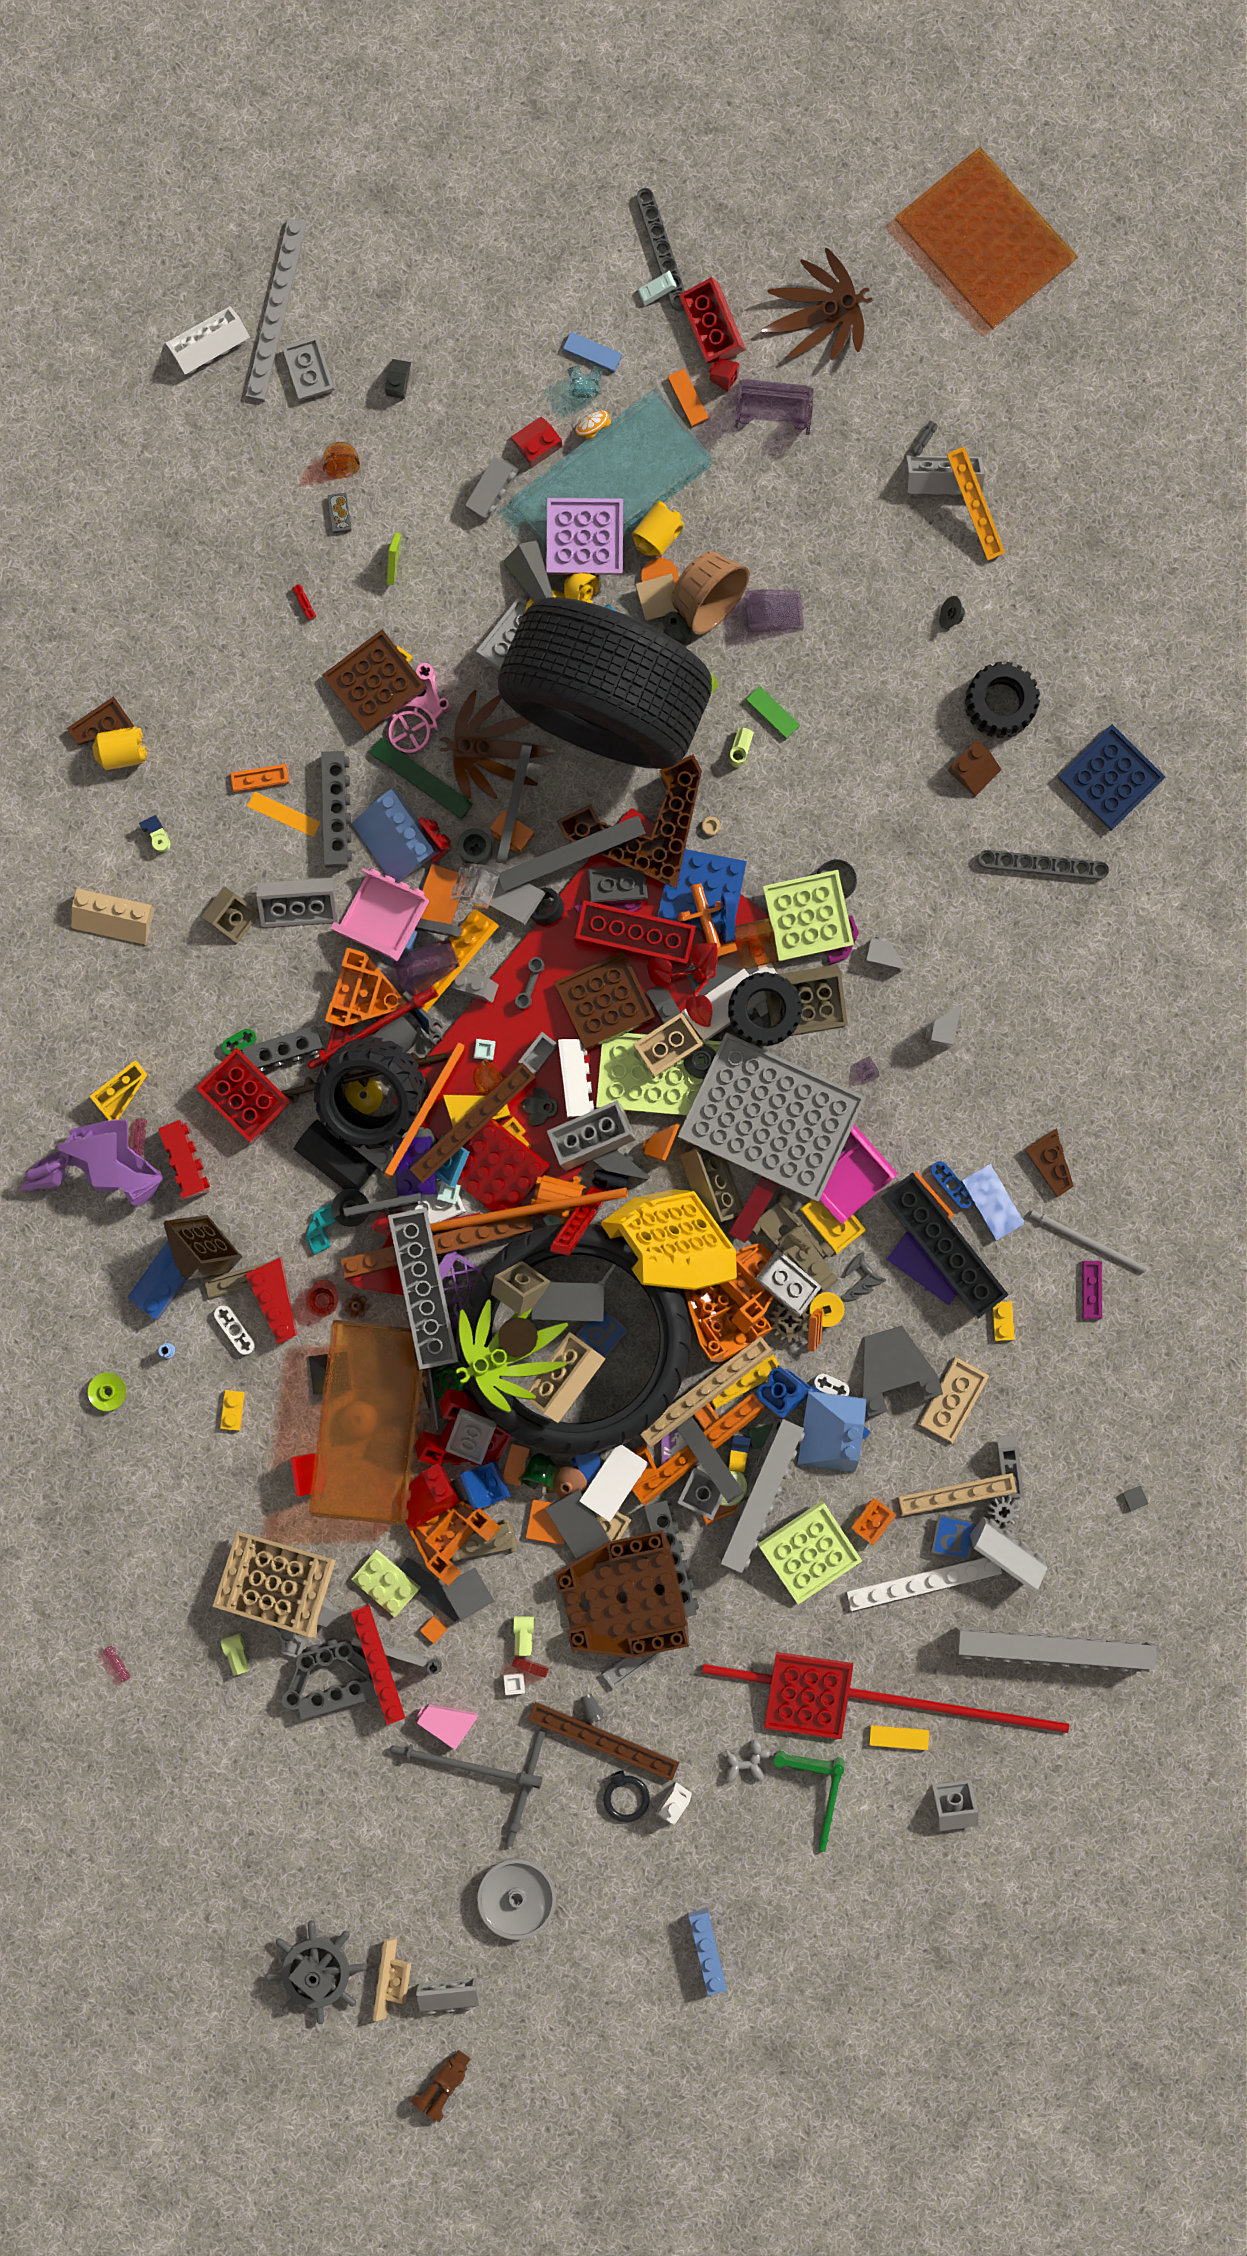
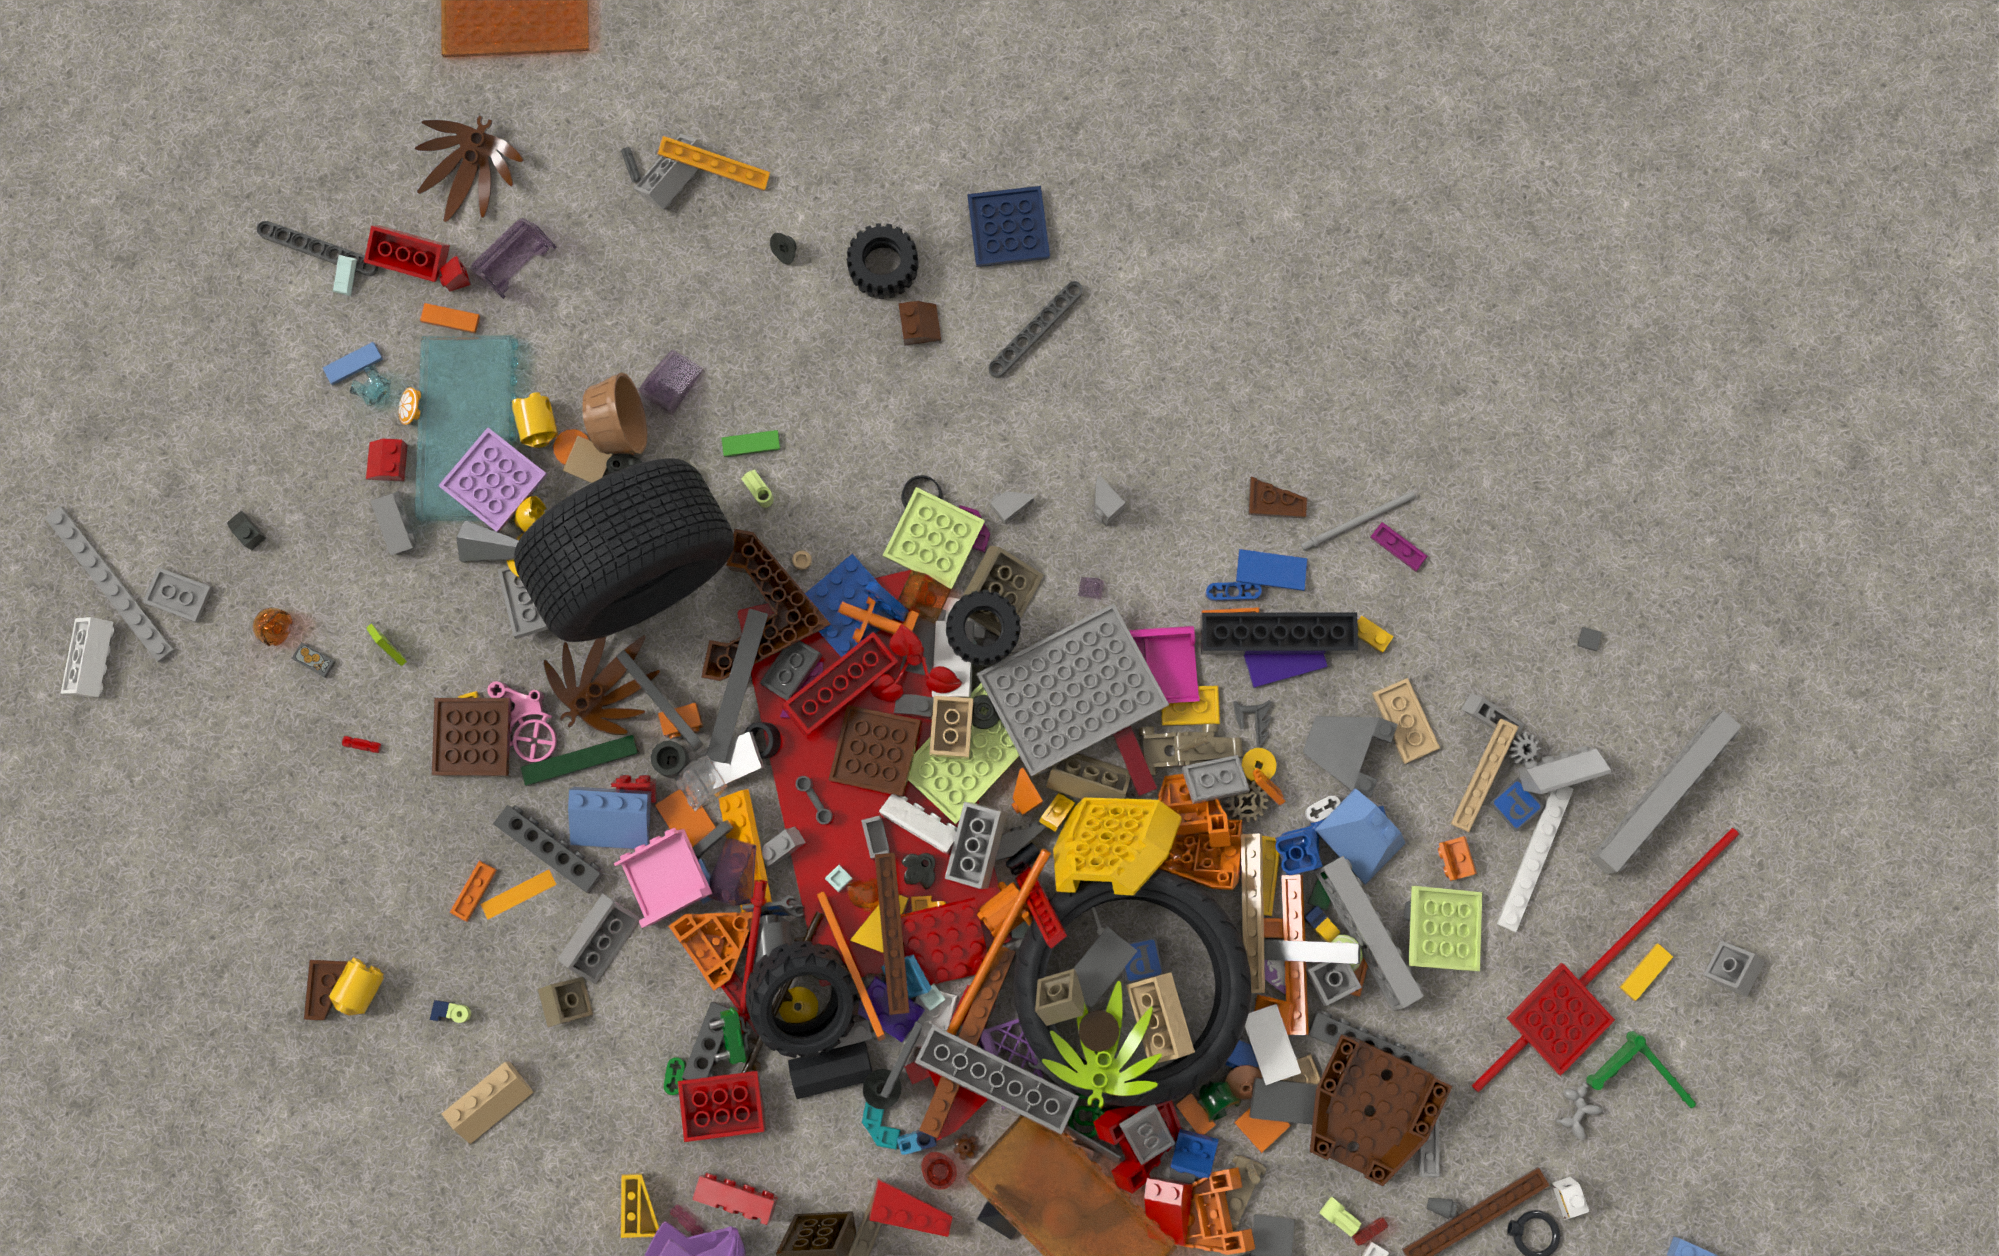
camera: 50 degrees left, 5 degrees down
(302, 1062) = (732, 1035): none -> green piece
(330, 1264) = (915, 1142): none -> leg
(666, 1179) = (1057, 812): none -> yellow plate

